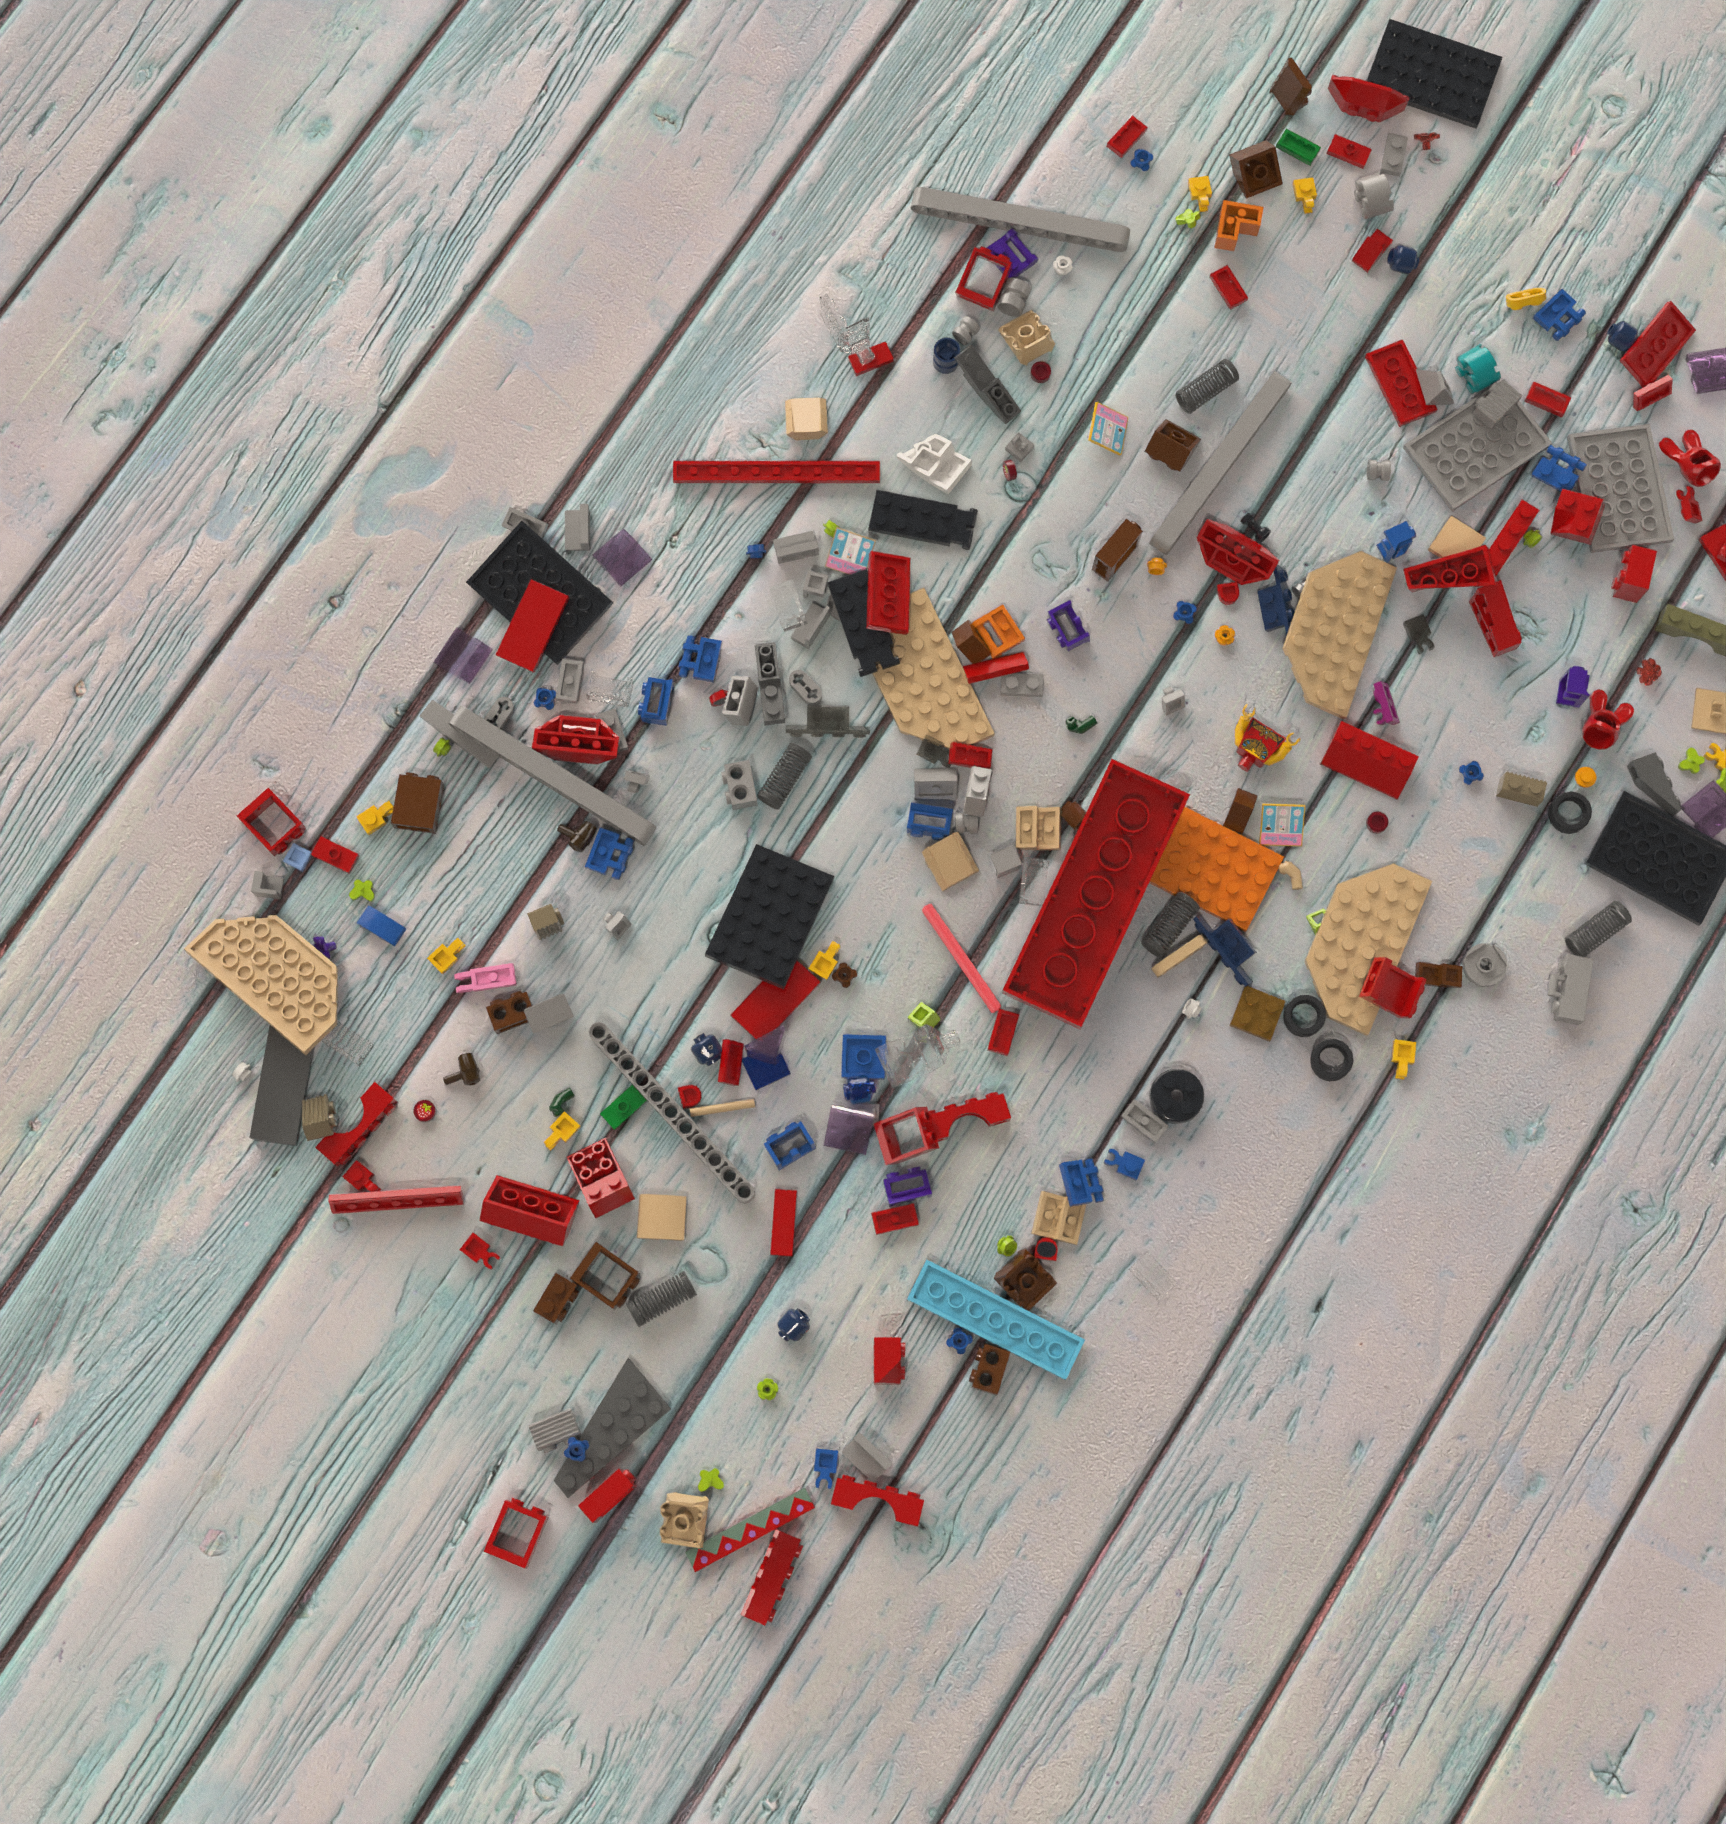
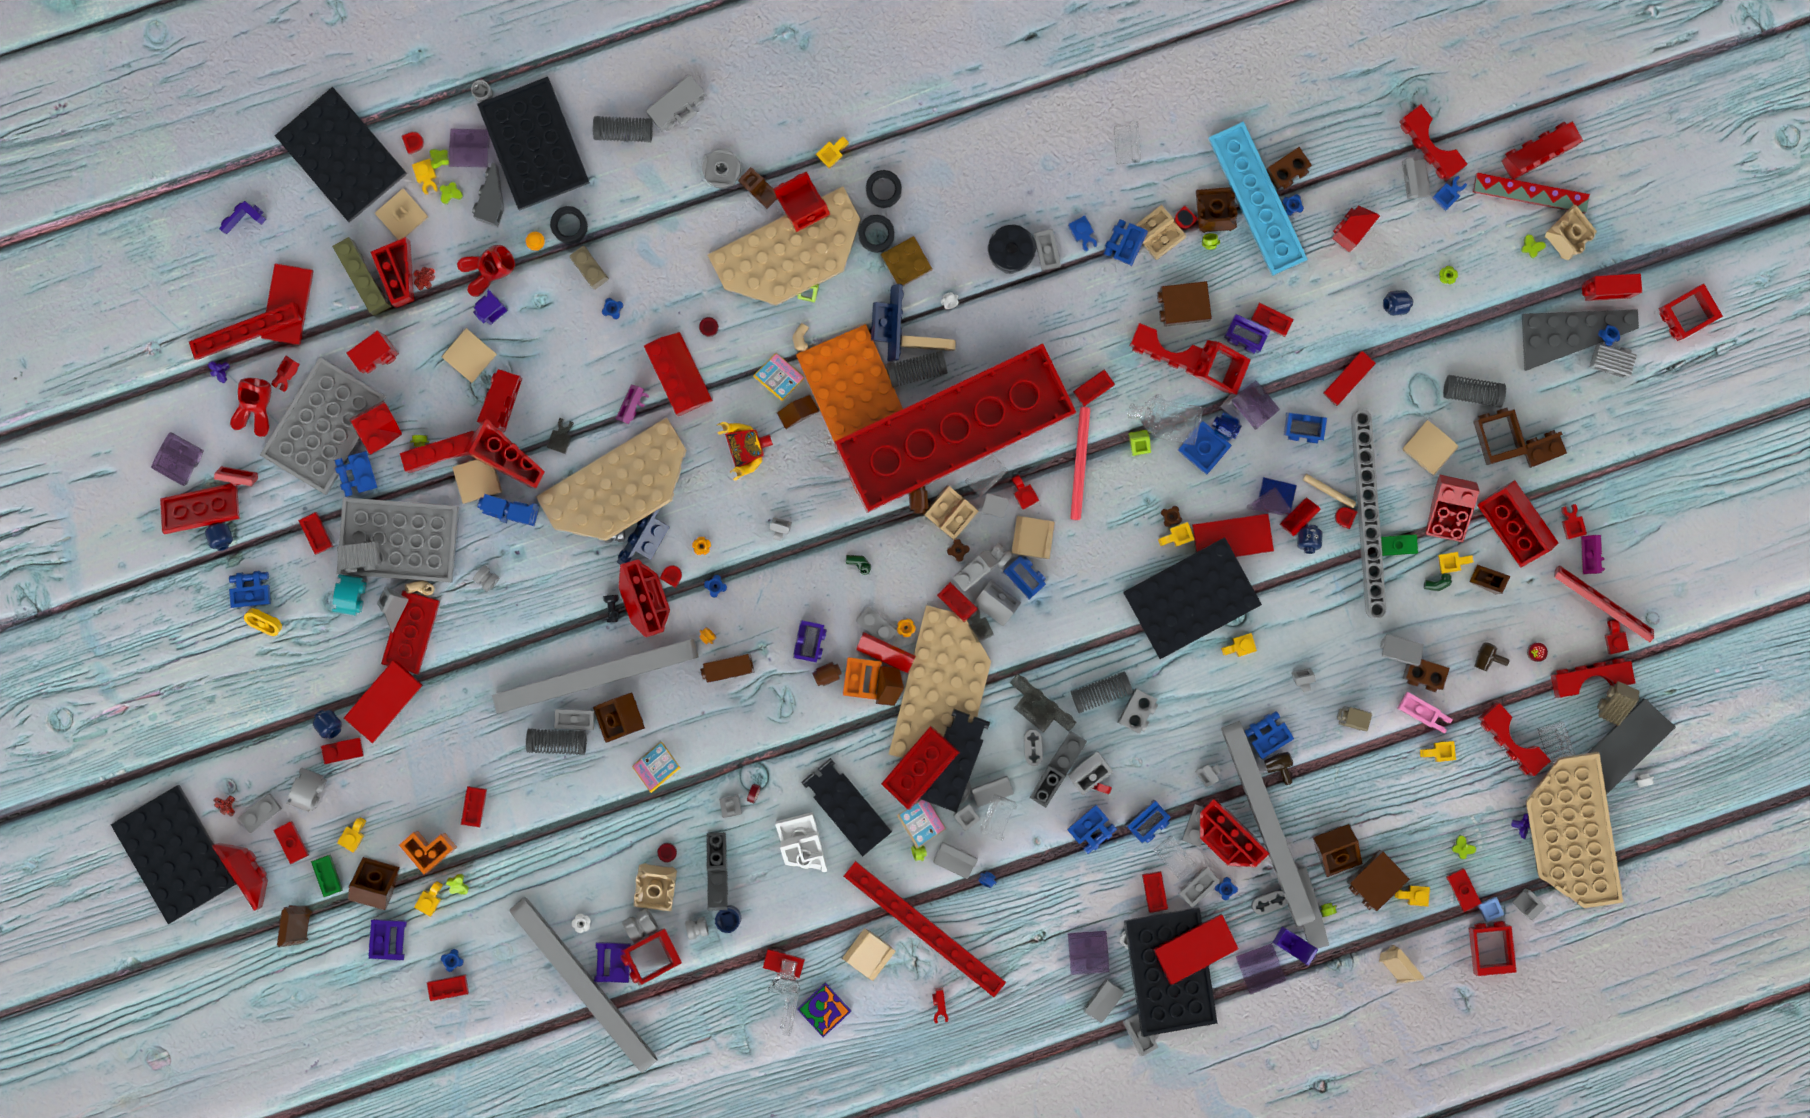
camera: 140 degrees left, 10 degrees up
(342, 748) = (1400, 965): none -> tan slope
(361, 1011) = (1497, 721): none -> red arch
(381, 925) = (1470, 810): blue slope -> none
(440, 1234) = (1592, 554): none -> magenta plate
(448, 696) = (1295, 946): none -> dark purple bracket
(473, 802) = (1338, 850): none -> reddish brown slope
(517, 1139) = (1489, 579): none -> reddish brown slope
(604, 648) = (1155, 891): none -> red plate
(692, 912) = (1241, 645): none -> yellow plate
(715, 424) = (938, 999): none -> red plate
(806, 348) = (824, 1010): none -> tile
(984, 1170) = (1184, 304): none -> reddish brown brick
(987, 893) = (1024, 495): none -> red plate
(996, 708) = (911, 627): none -> light orange plate
(1009, 796) = (963, 550): none -> reddish brown plate
(1030, 611) = (827, 674): none -> reddish brown brick
(1207, 416) = (574, 719): none -> light grey plate
(1211, 131) = (381, 936): none -> dark purple plate
(1374, 311) = (383, 701): none -> red tile
(1422, 425) = (420, 586): none -> tan arm
(1426, 528) = (493, 507): none -> blue window
(1554, 638) = (468, 355): none -> tan slope
(1677, 656) = (395, 270): none -> red wedge

